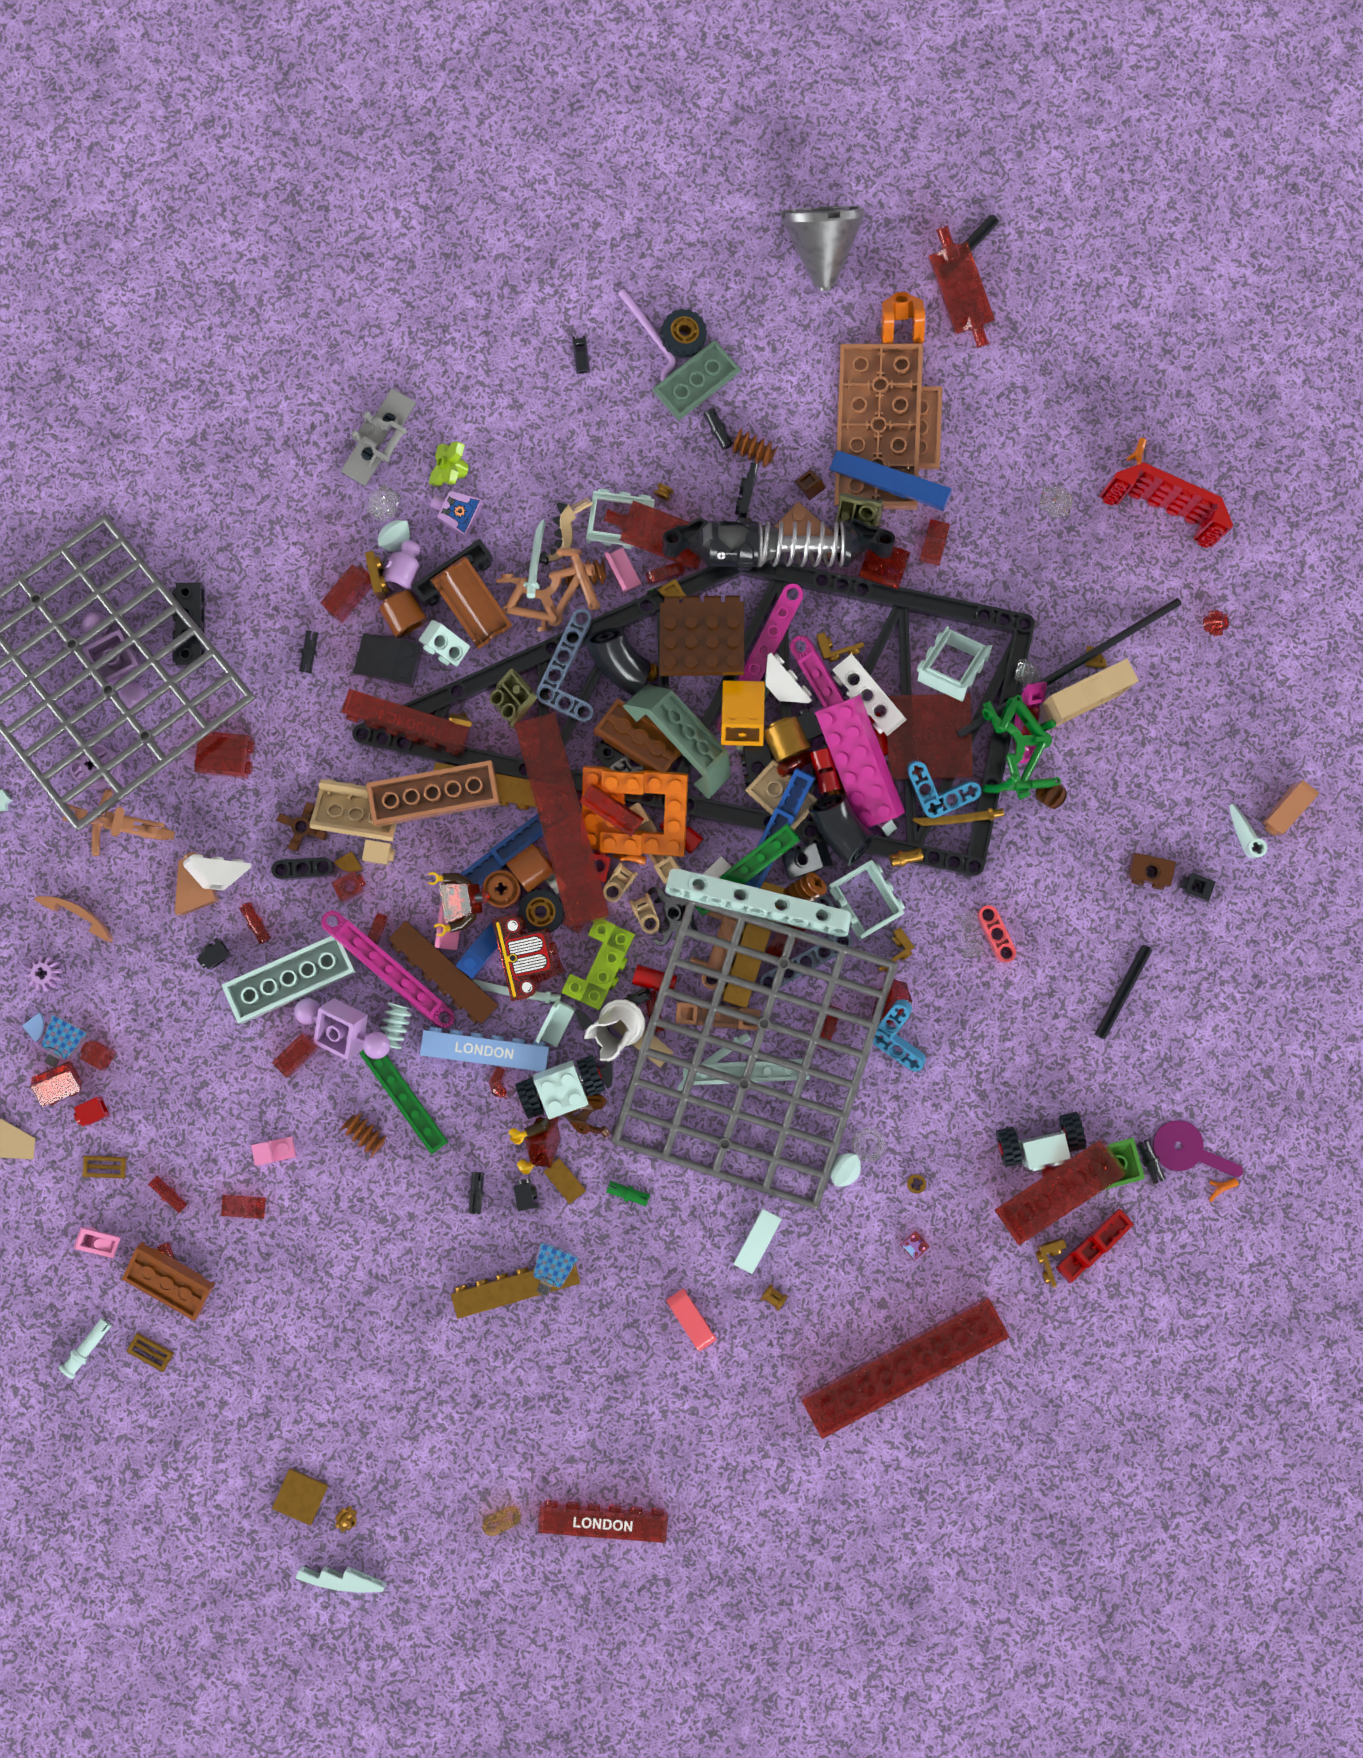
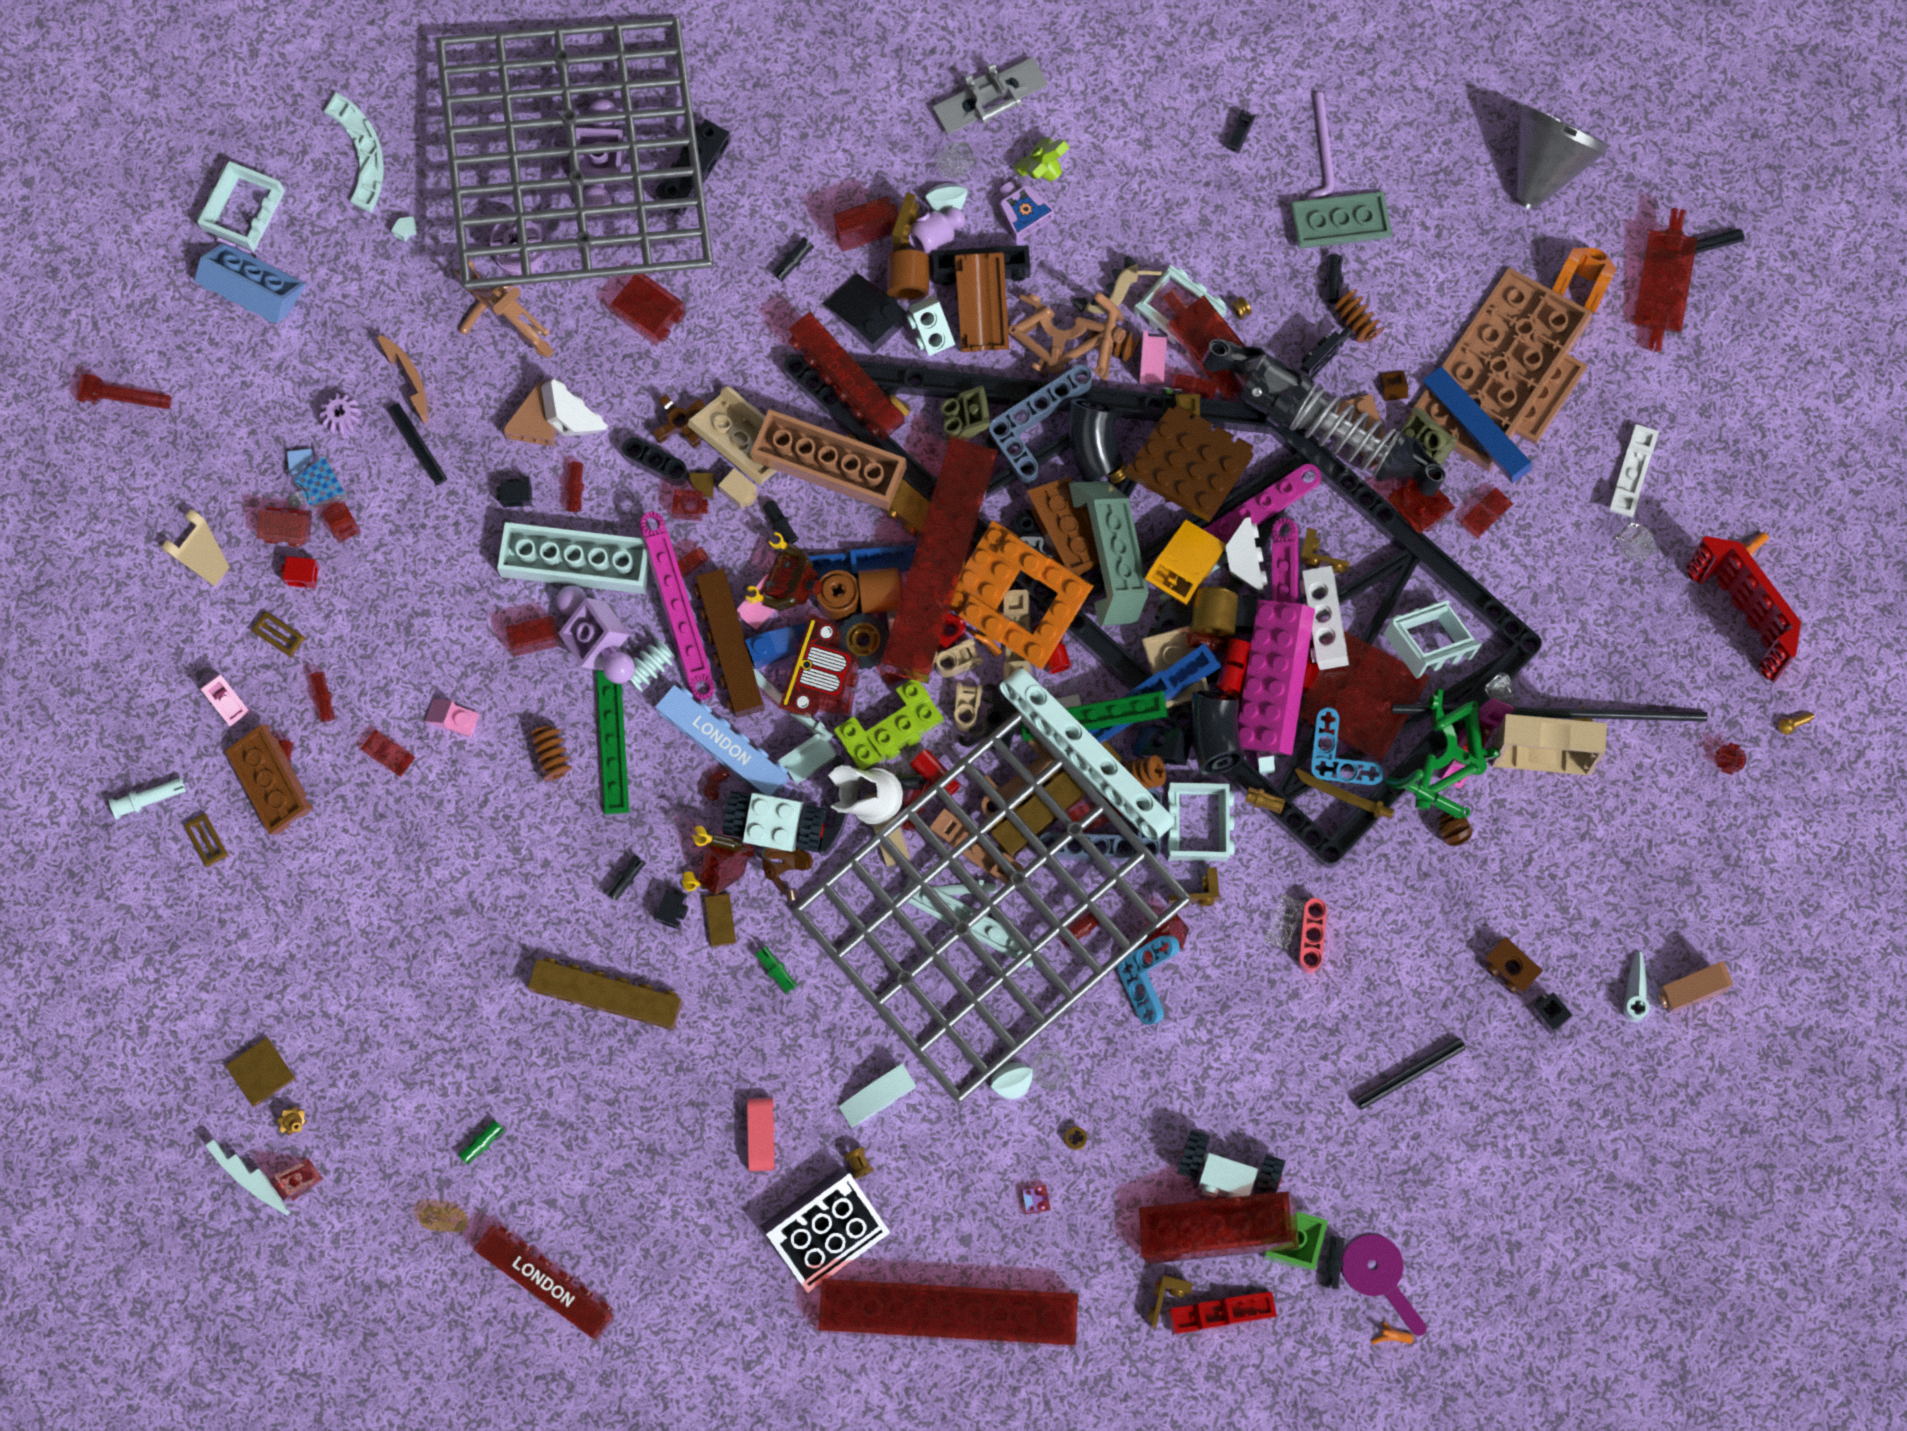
camera: 35 degrees right, 10 degrees down
(116, 960) = (417, 444): none -> black axle
(377, 1560) = (295, 1180): none -> clear red slope
(424, 859) = (780, 522): none -> black axle
(492, 1449) = (480, 1142): none -> green pin
(532, 584) = (1053, 318): light aqua sword -> none
(552, 1267) = (655, 991): torso -> none
(611, 810) = (995, 577): clear red plate -> none
(683, 321) = (1358, 154): black wheel -> none
(778, 1359) = (825, 1229): none -> black slope
(1021, 448) = (1633, 471): none -> white slope
(1240, 573) = (1787, 726): none -> pearl gold piece

